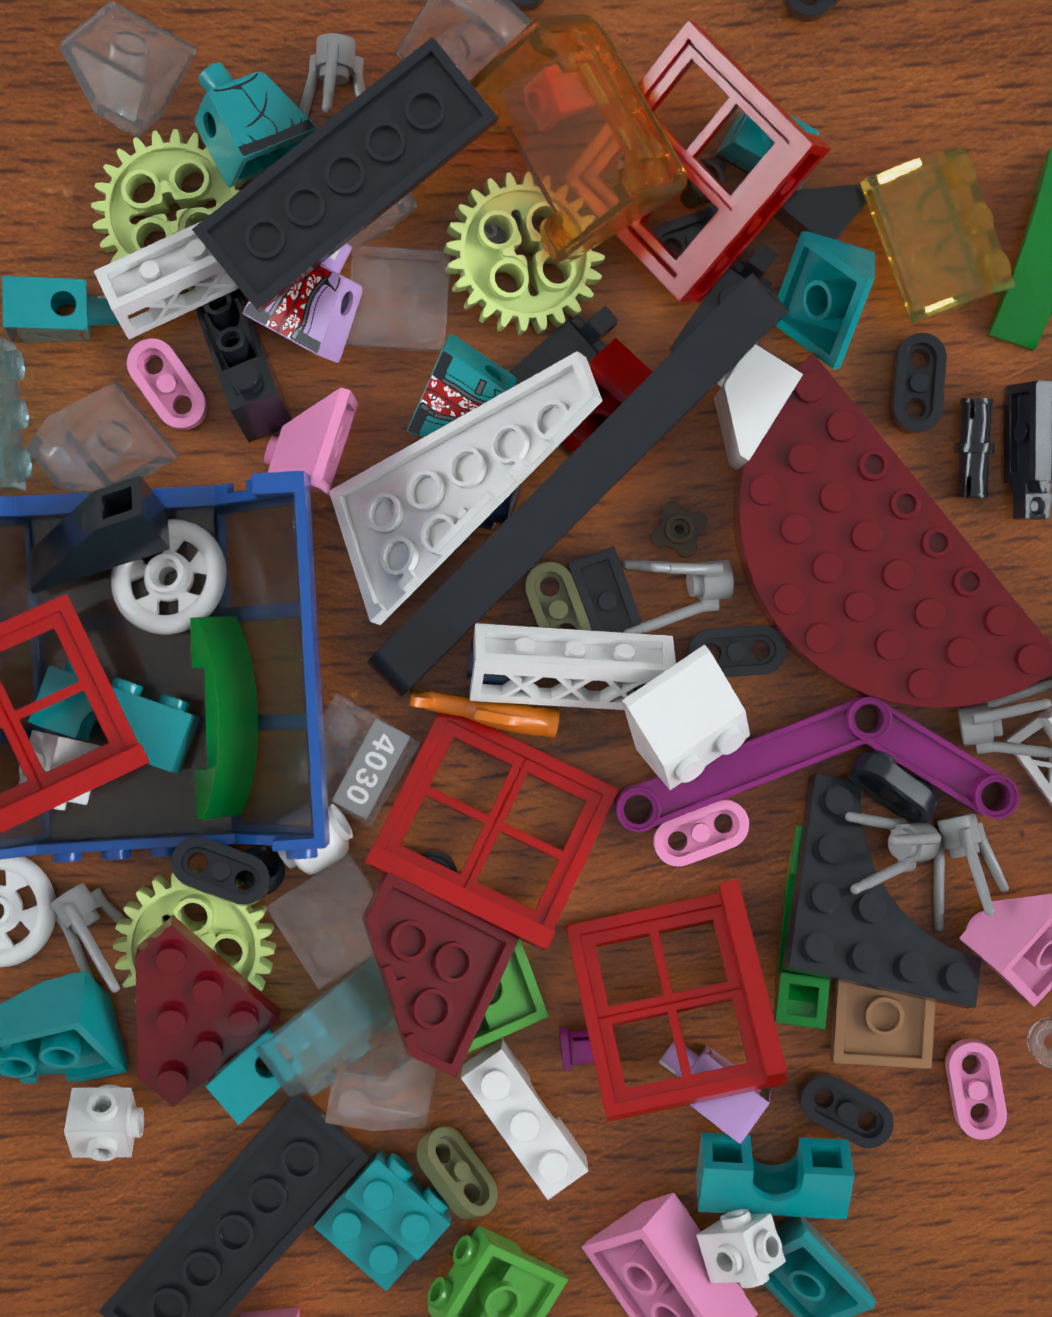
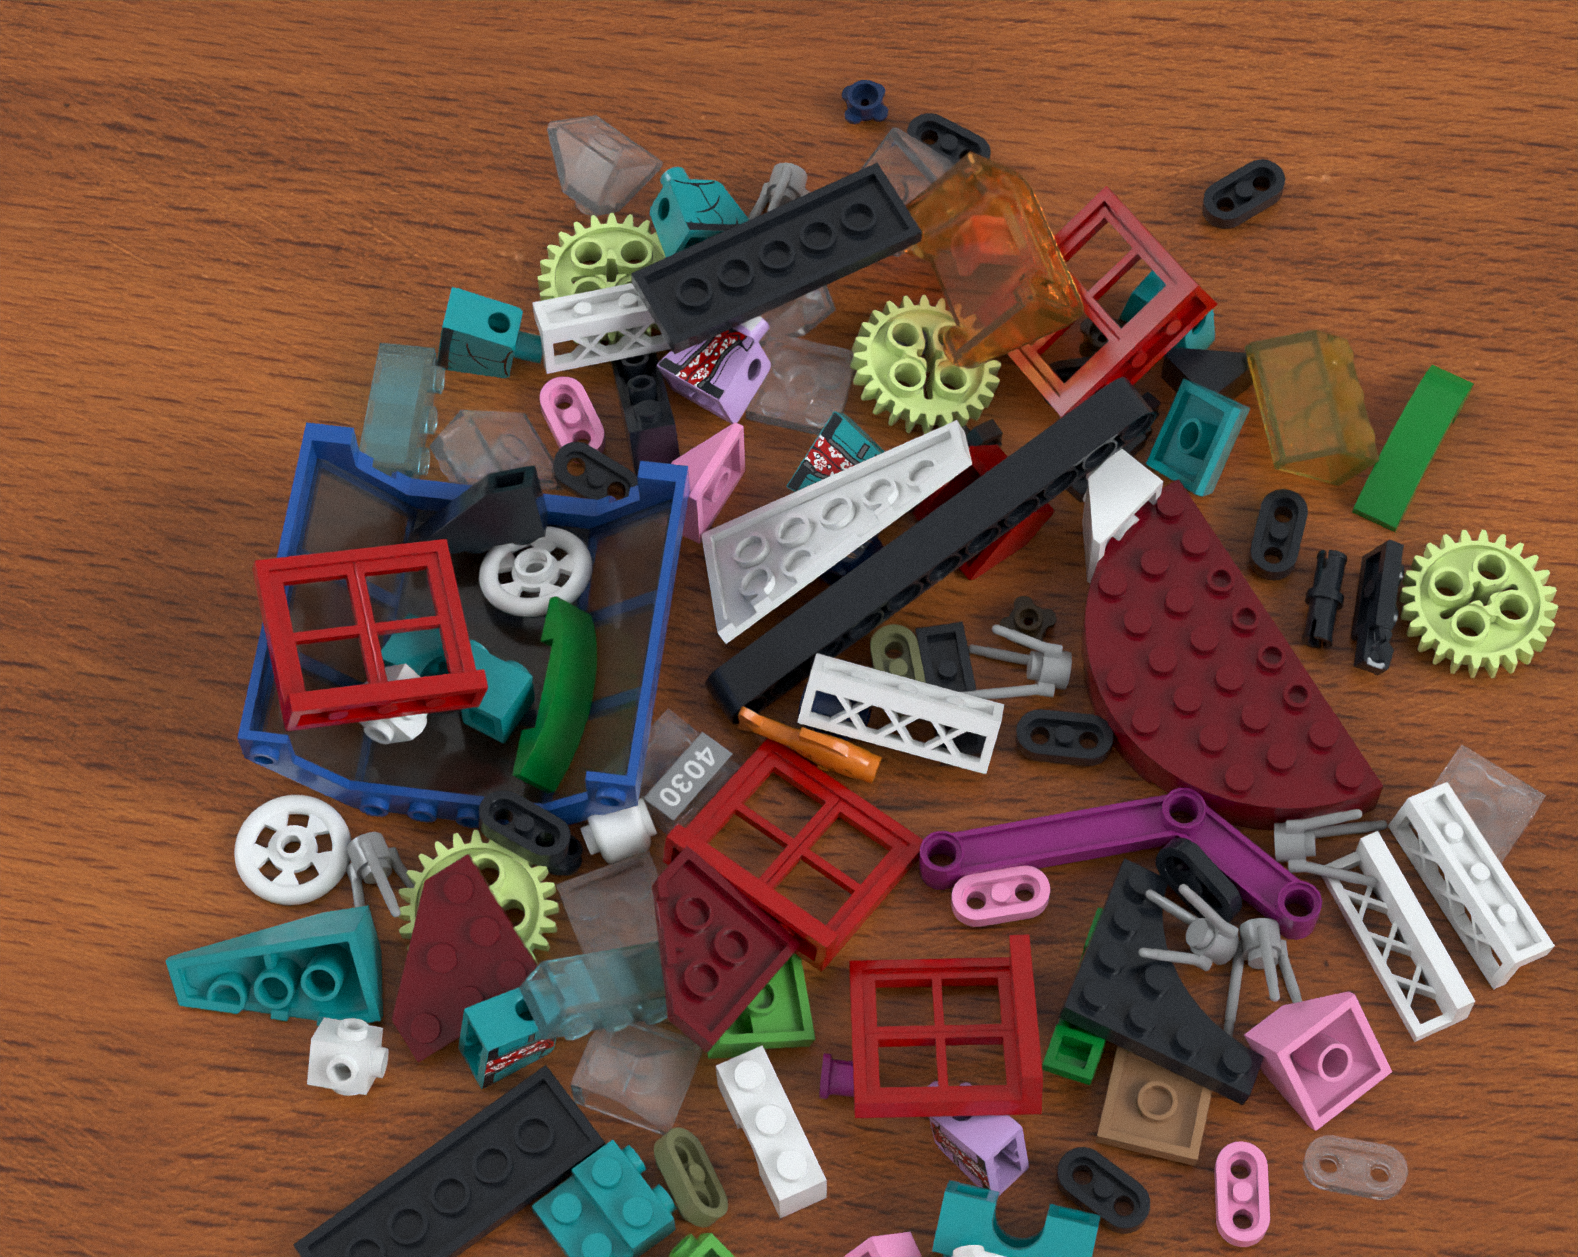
camera: 15 degrees right, 25 degrees down
(206, 453) = (598, 474): none -> black plate
(686, 718) = (1002, 770): white slope -> none

